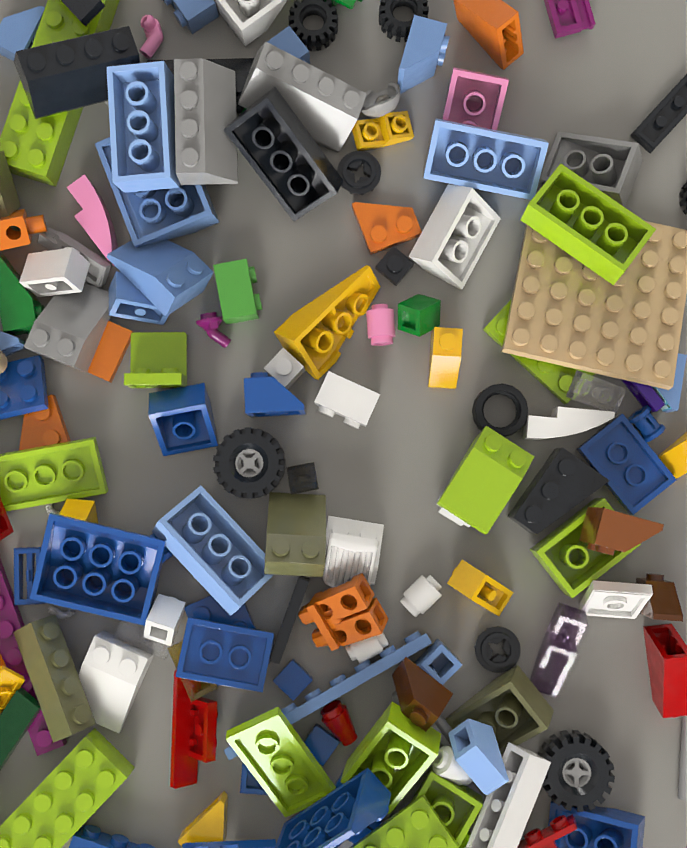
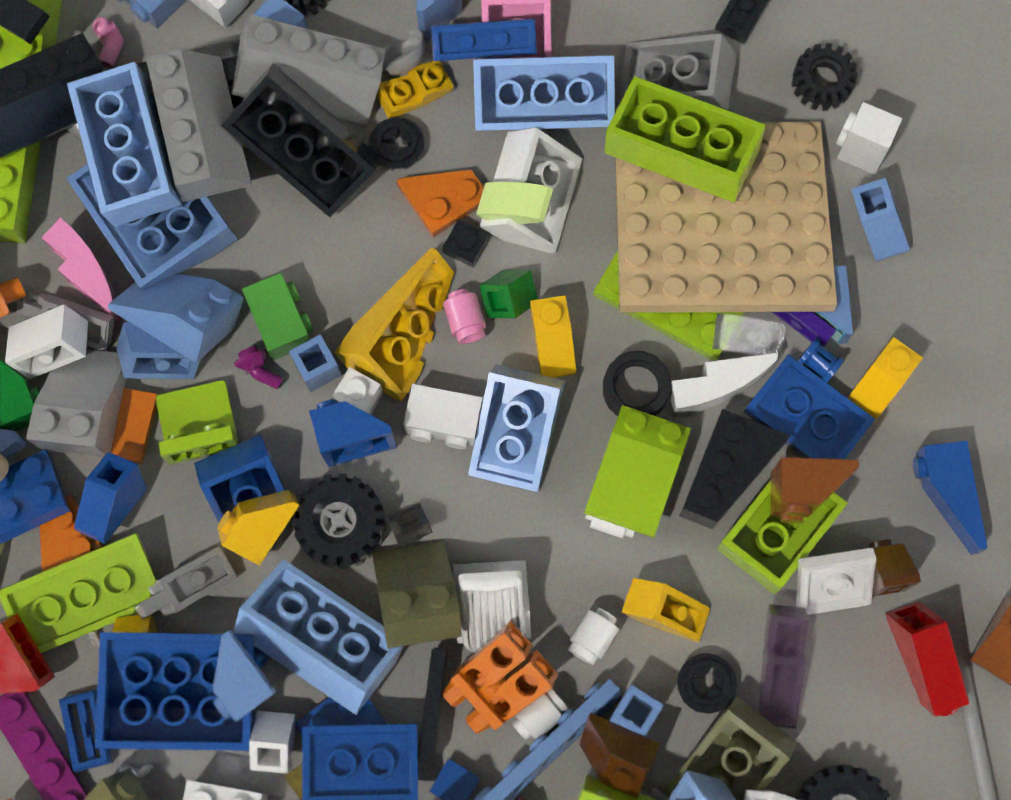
camera: 10 degrees left, 10 degrees down
(79, 405) = (109, 497): none -> blue slope
(126, 485) = (188, 584): none -> light grey hinge
(147, 576) = (238, 680): none -> medium blue slope
(187, 453) = (257, 524): none -> yellow slope
(257, 336) = (315, 363): none -> medium blue brick
(400, 421) = (516, 427): none -> light blue slope
(441, 244) = (514, 200): none -> yellowish green slope
(447, 104) = (484, 39): none -> blue tile

